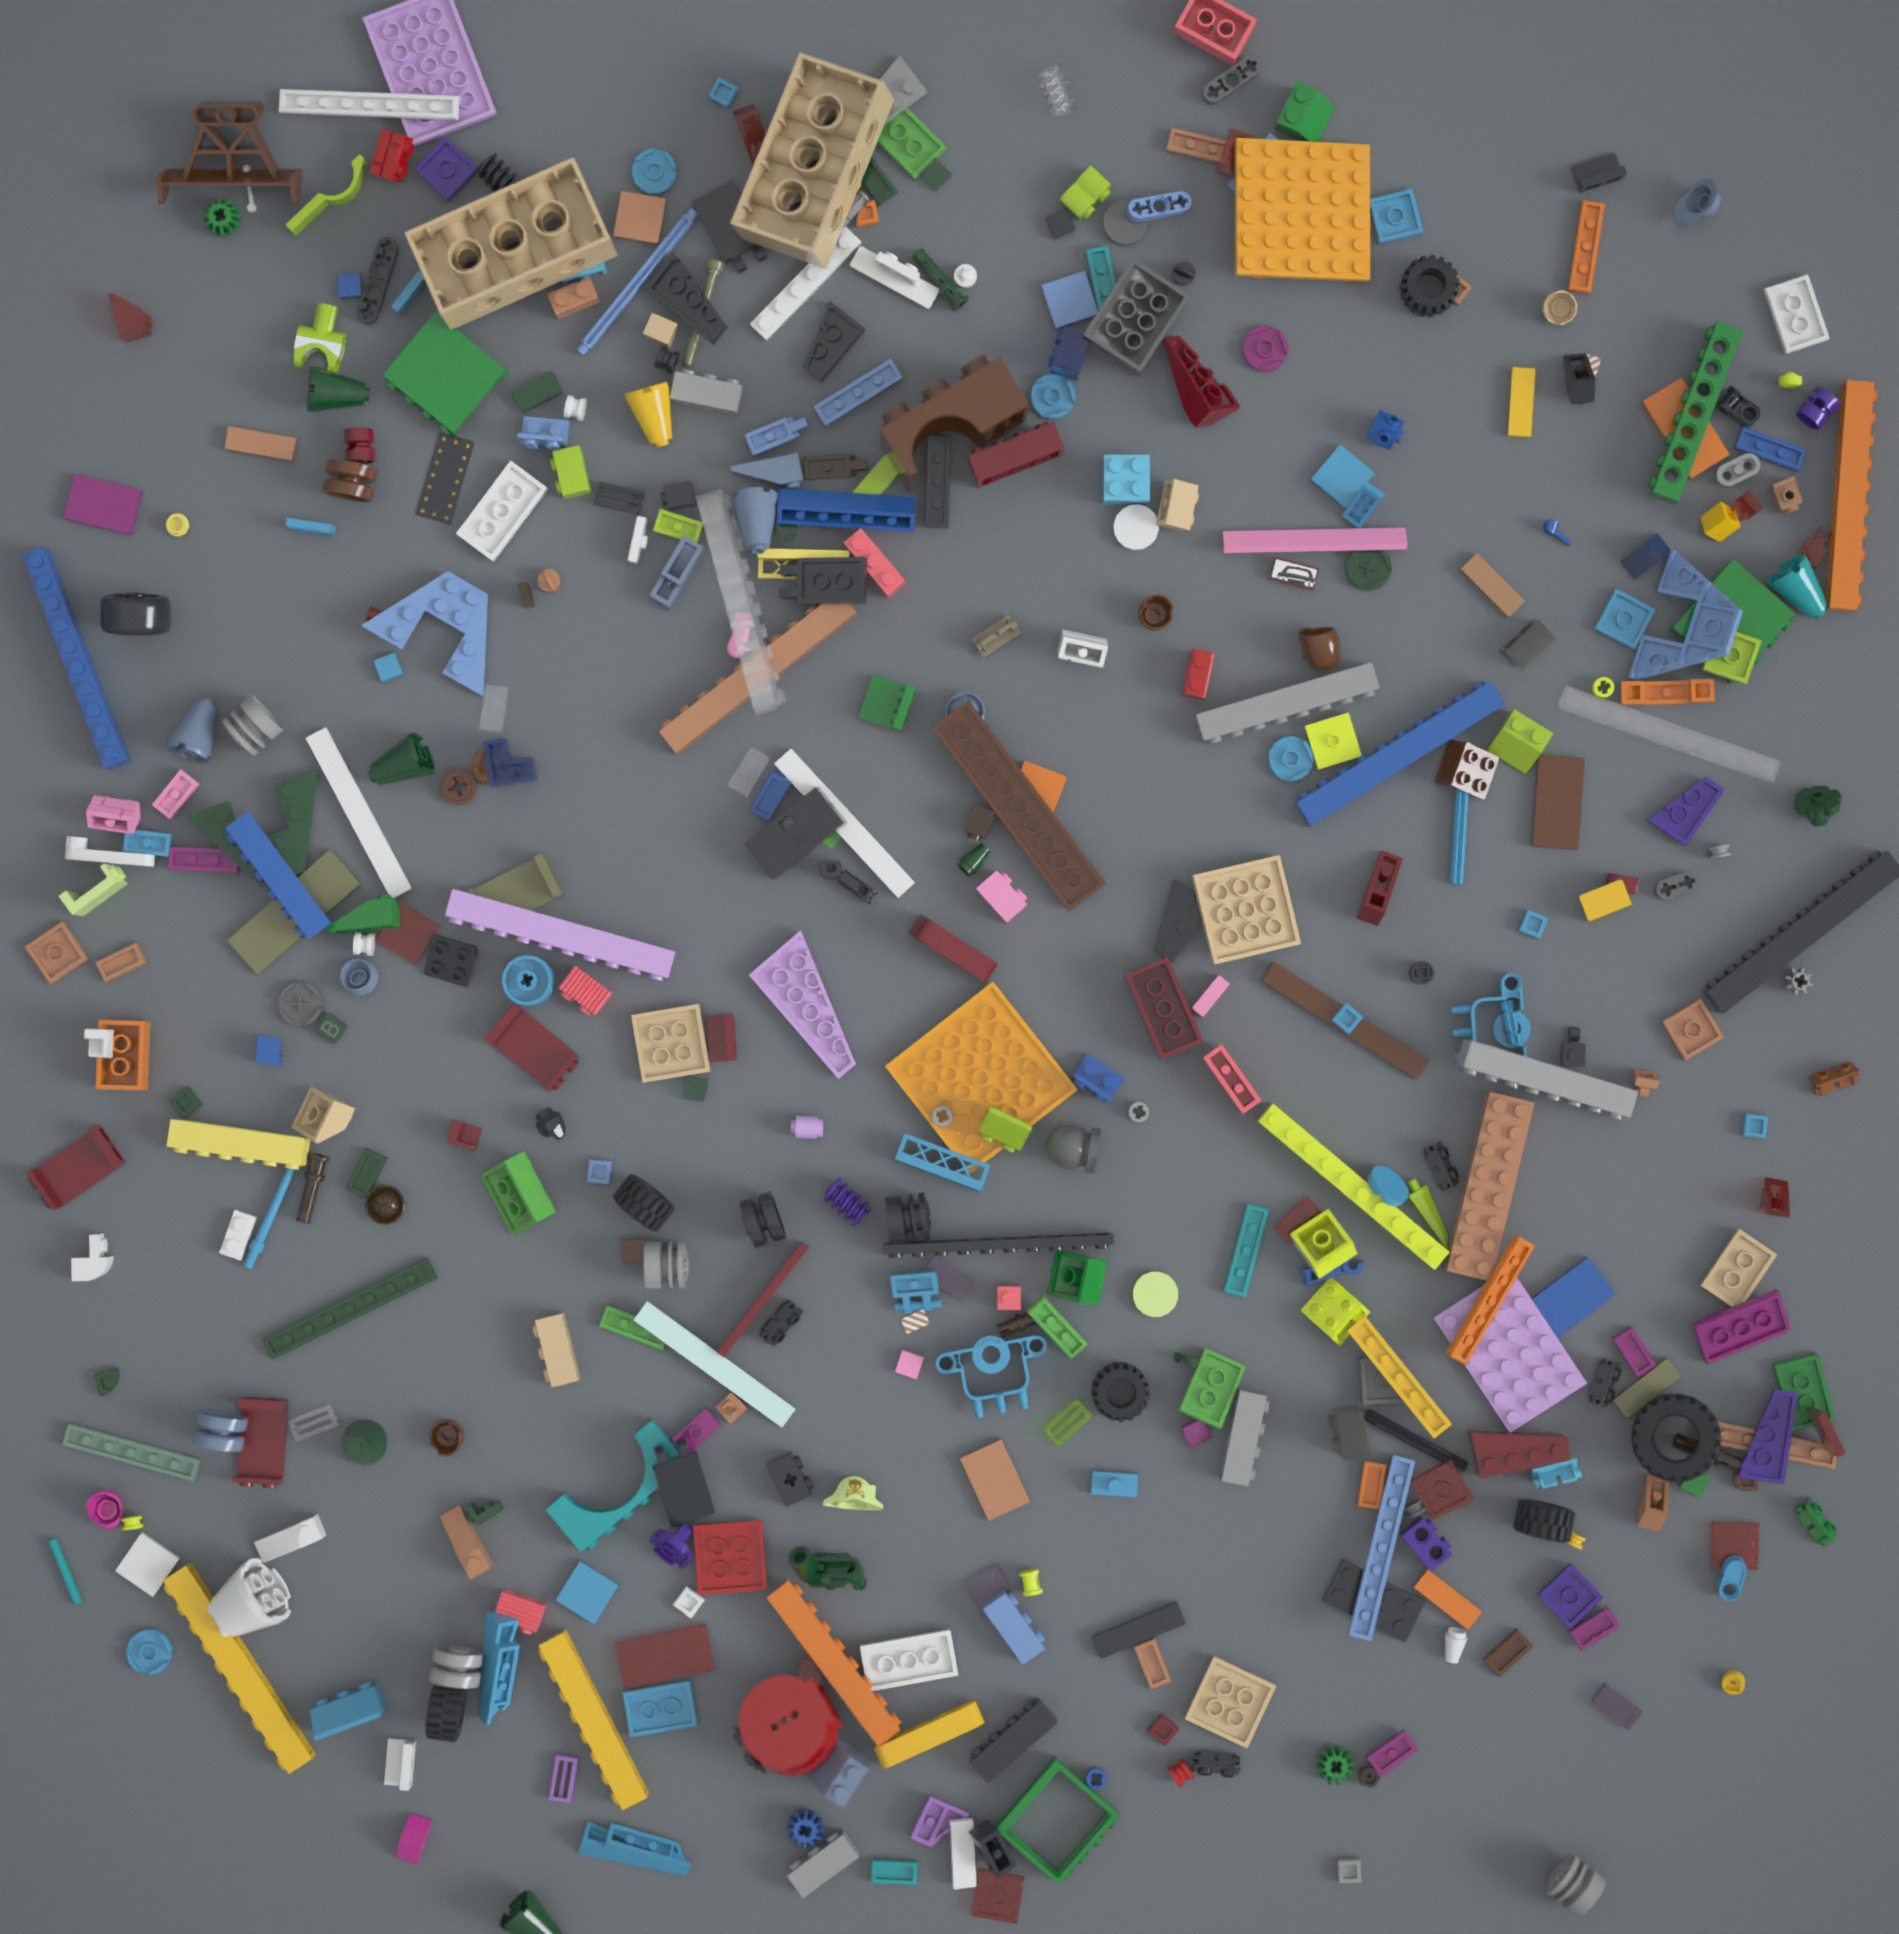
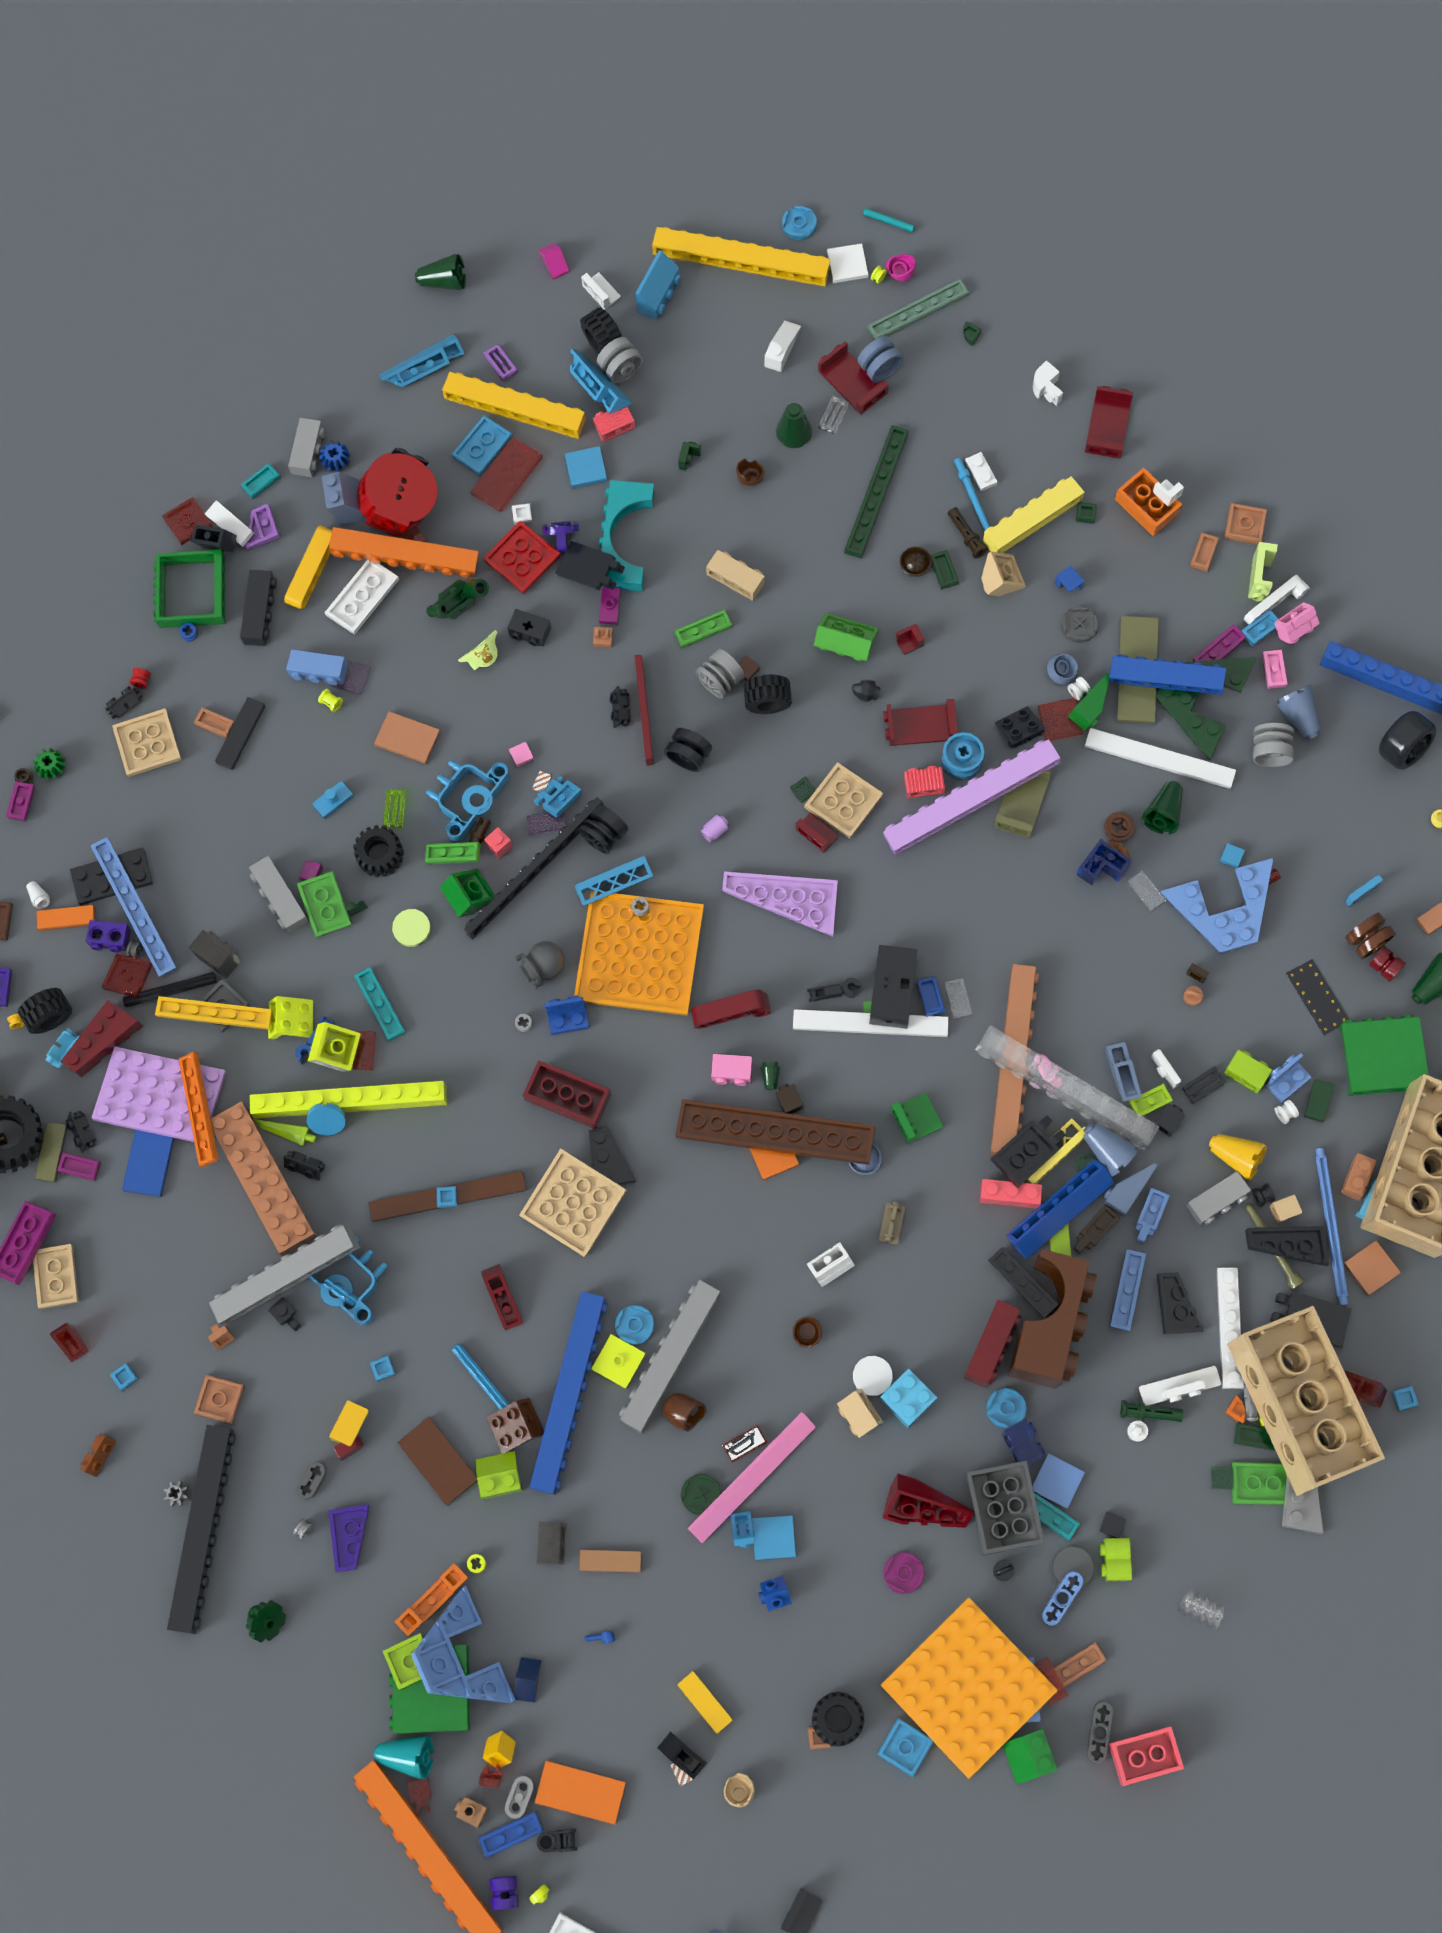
camera: 140 degrees right, 15 degrees down
(250, 1600) = (770, 292): white cone -> none
(331, 1028) = (1048, 627): dark green tile -> none
(466, 1542) = (680, 429): nougat slope -> none
(502, 511) = (1264, 1008): white plate -> none
(599, 1171) = (811, 693): medium blue tile -> none
(654, 171) = (1393, 1306): dark azure tile -> none
(714, 1364) = (626, 650): light aqua tile -> none
(846, 1202) = (648, 807): dark purple piece -> none
(1005, 1129) = (595, 932): lime slope -> none
(1163, 1729) = (173, 693): dark red tile -> none
(1198, 674) = (743, 1319): red brick -> none
(1210, 996) = (545, 1131): bright pink piece -> none
(1231, 1079) = (484, 1092): coral brick -> none
(1371, 1485) = (173, 939): orange tile -> none
(1418, 974) = (429, 1269): black wheel -> none
(1586, 247) = (761, 1853): orange tile -> none
(1624, 619) = (503, 1623): dark azure tile -> none
(1669, 734) = (404, 1575): clear plate -> none
(1729, 339) = (605, 1880): green brick -> none

